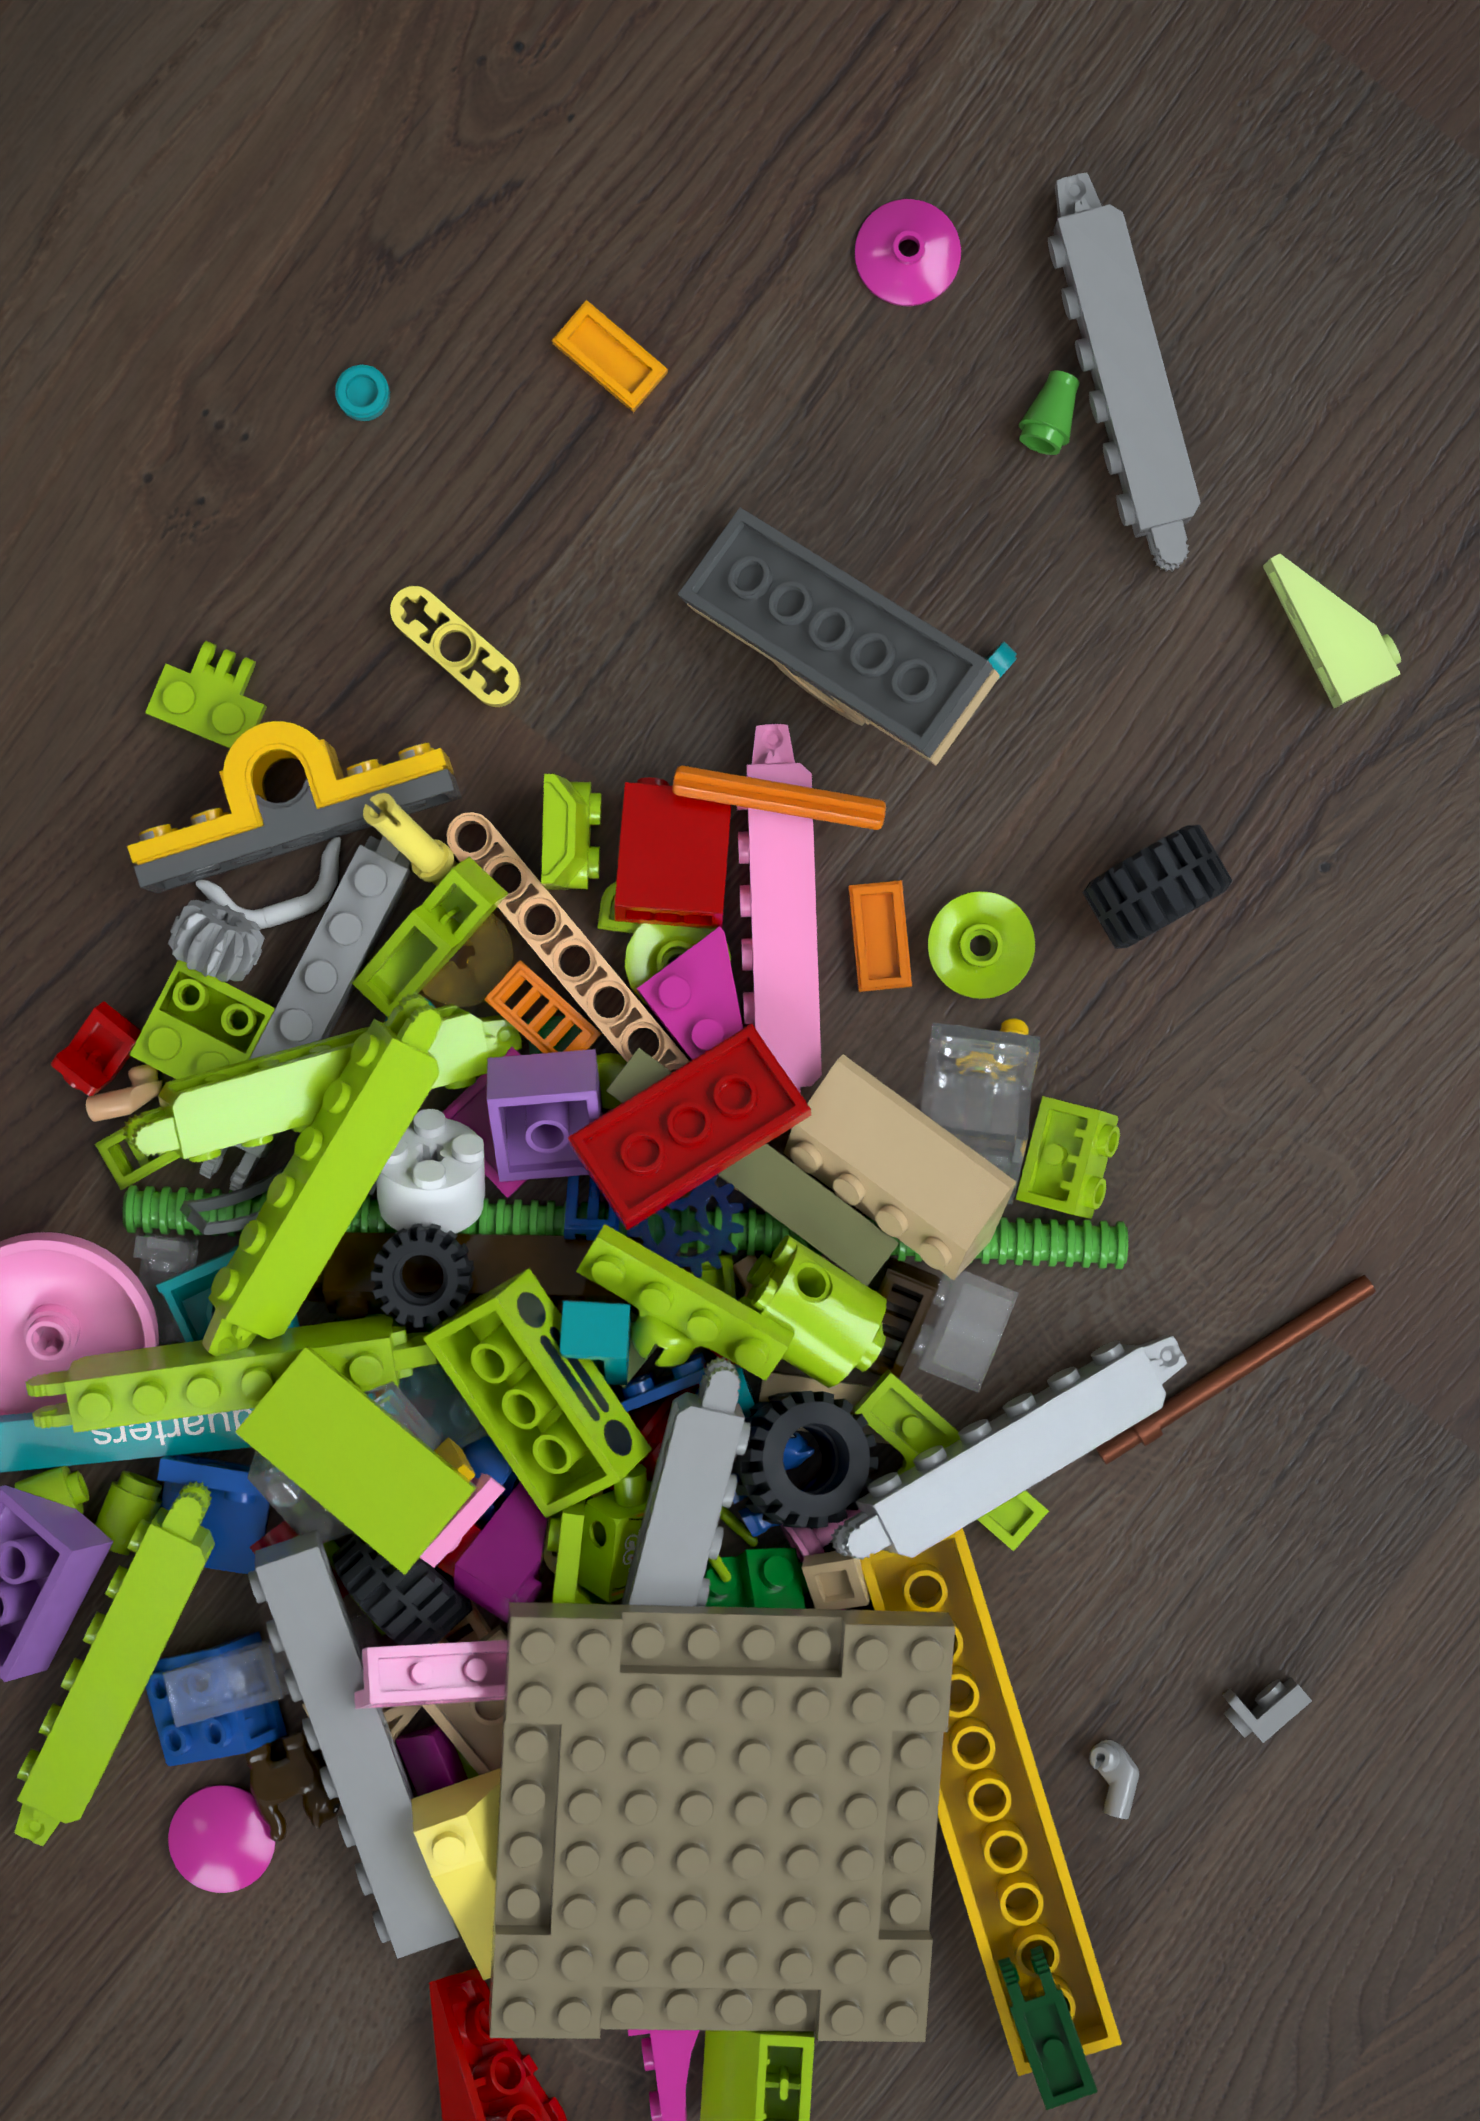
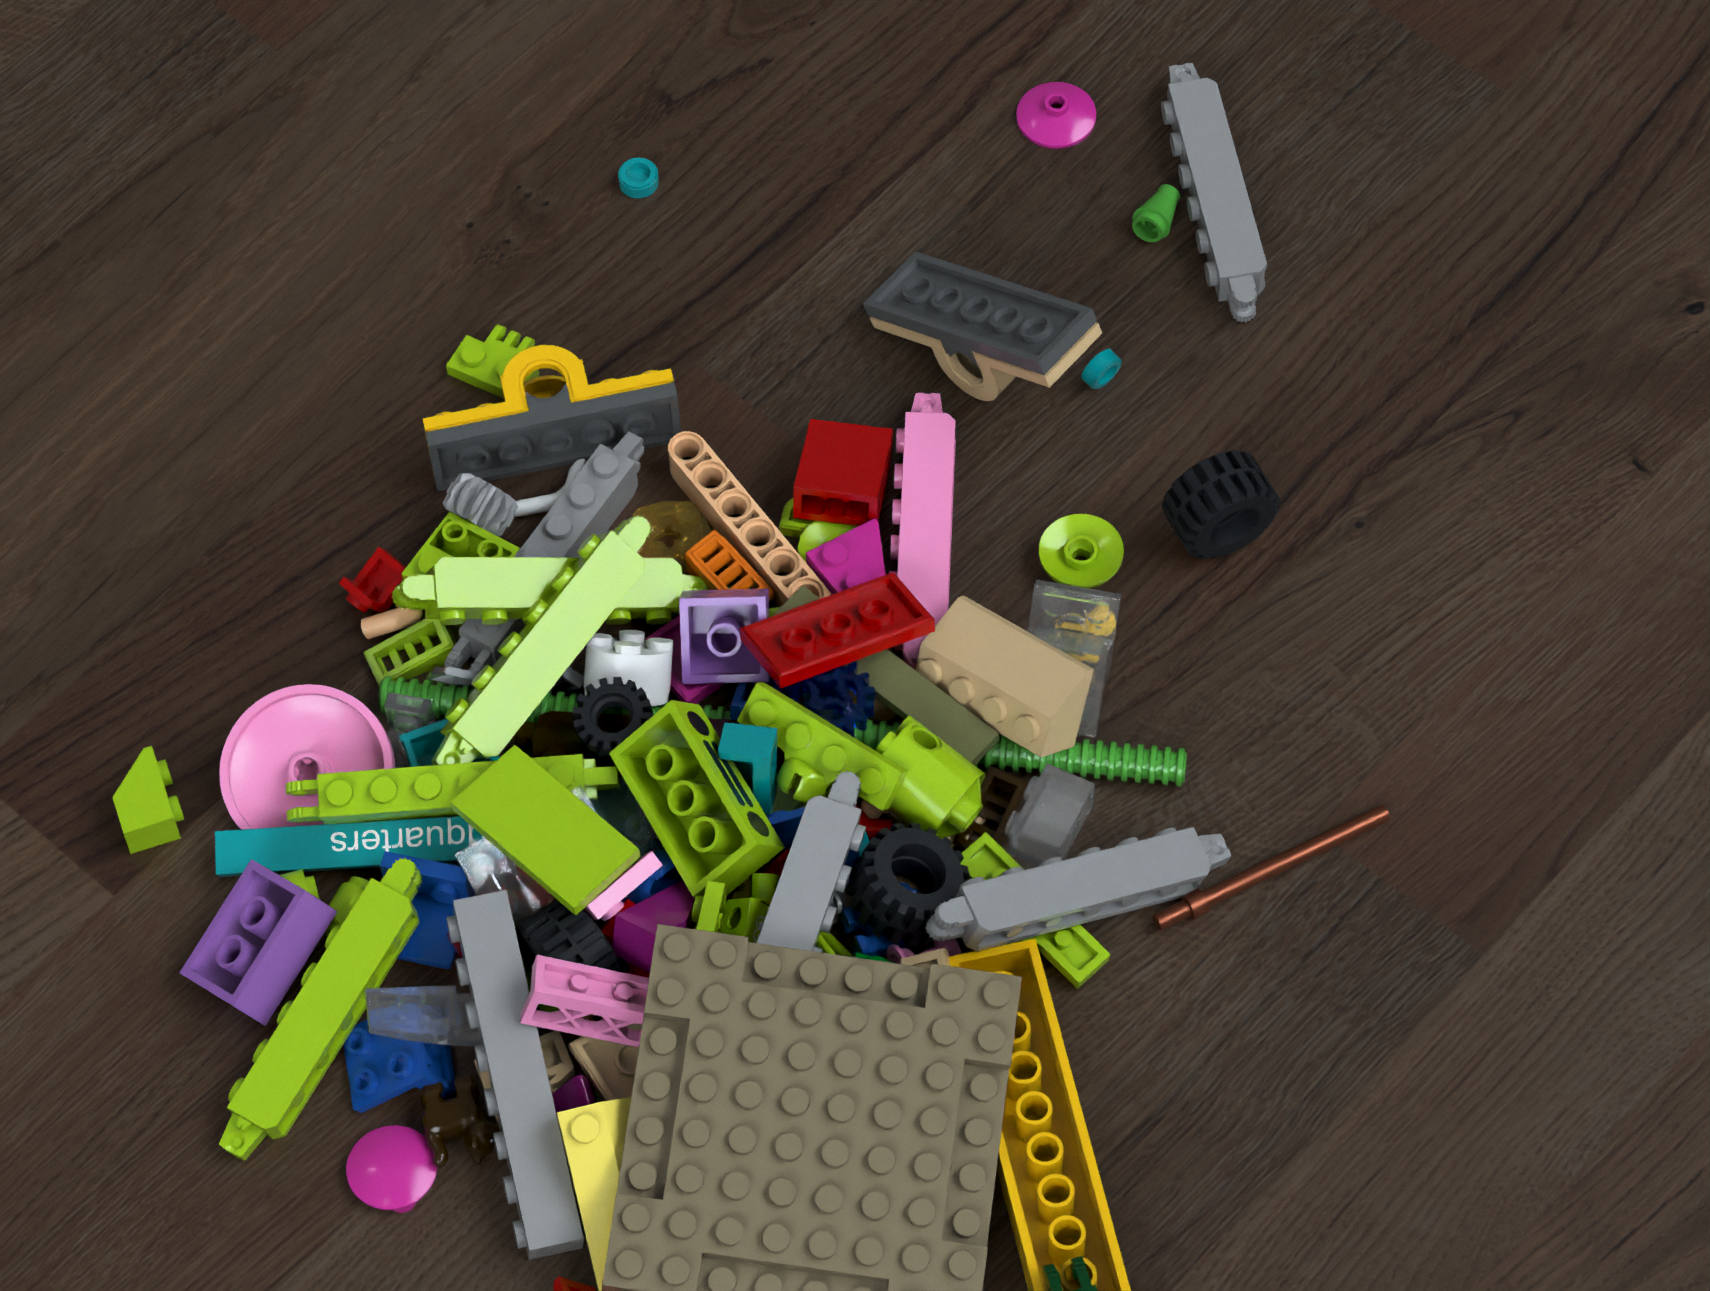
camera: 15 degrees right, 30 degrees down
(417, 630) = (692, 355): light yellow beam -> none
(428, 857) = (653, 458): light yellow pin -> none
(430, 935) = (659, 499): lime slope -> none
(567, 823) = (762, 451): lime slope -> none
(610, 356) = (826, 164): light orange tile -> none
(779, 797) = (928, 429): orange axle -> none
(880, 936) = (1002, 548): orange tile -> none
(1068, 1158) = (1142, 702): lime bracket -> none
(1120, 1774) = (1159, 1166): light grey arm -> none
(1275, 1708) = (1292, 1120): light grey bracket -> none
(1338, 639) = (1369, 362): yellowish green slope -> none

